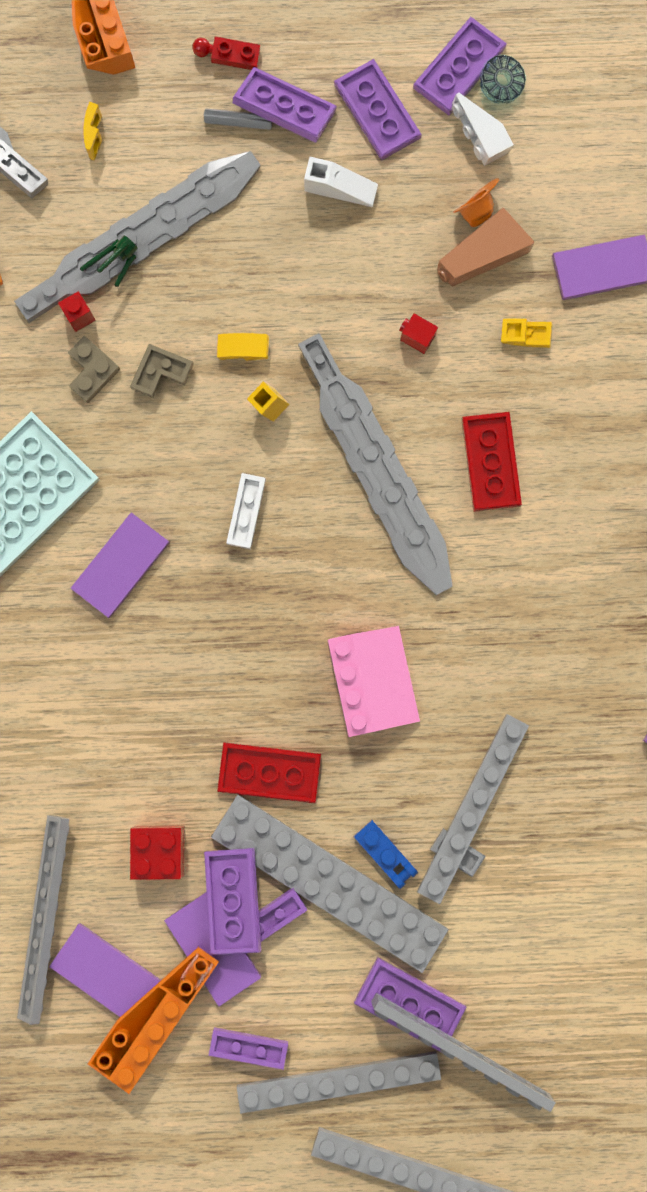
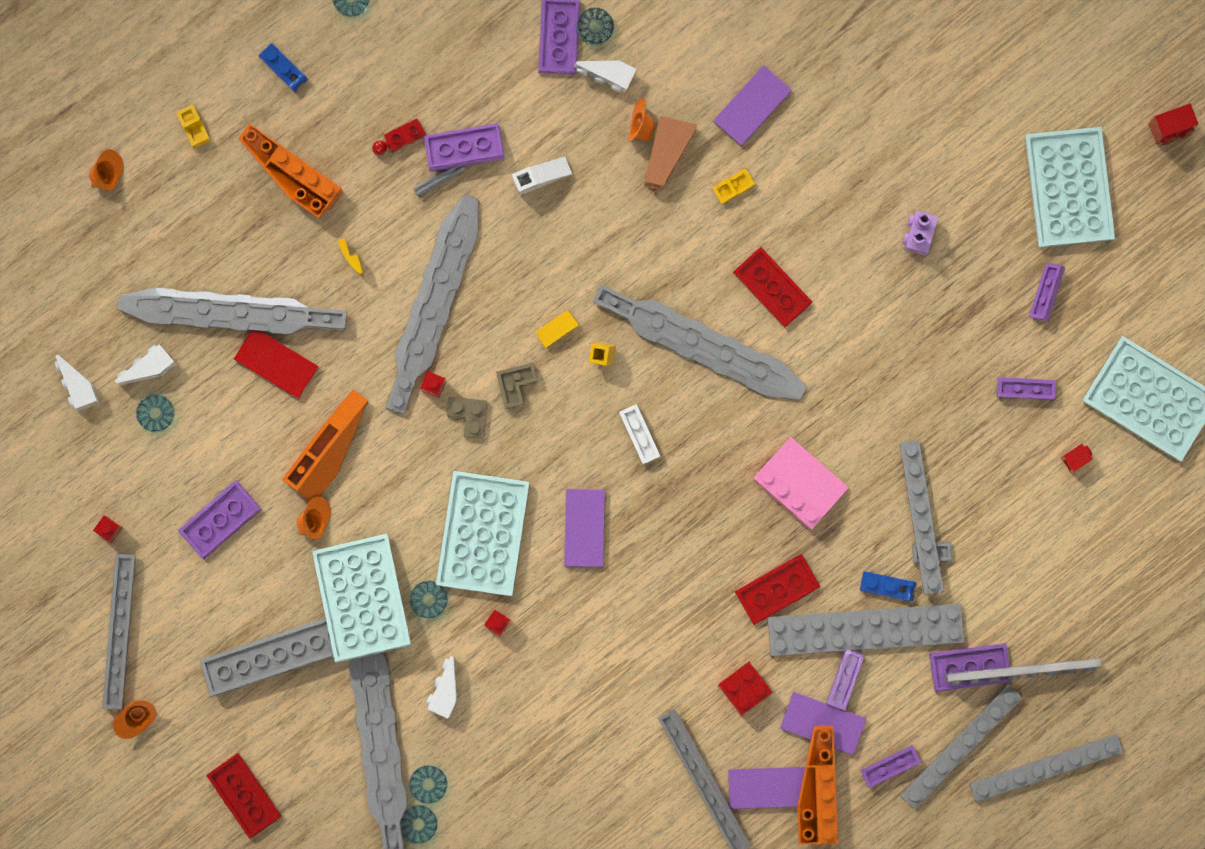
camera: 30 degrees left, 0 degrees up
(123, 250) = (434, 322): dark green plant -> none
(232, 901) = (814, 683): medium lavender tile -> none
(377, 109) = (526, 105): medium lavender tile -> none
(418, 333) = (664, 237): red brick -> none

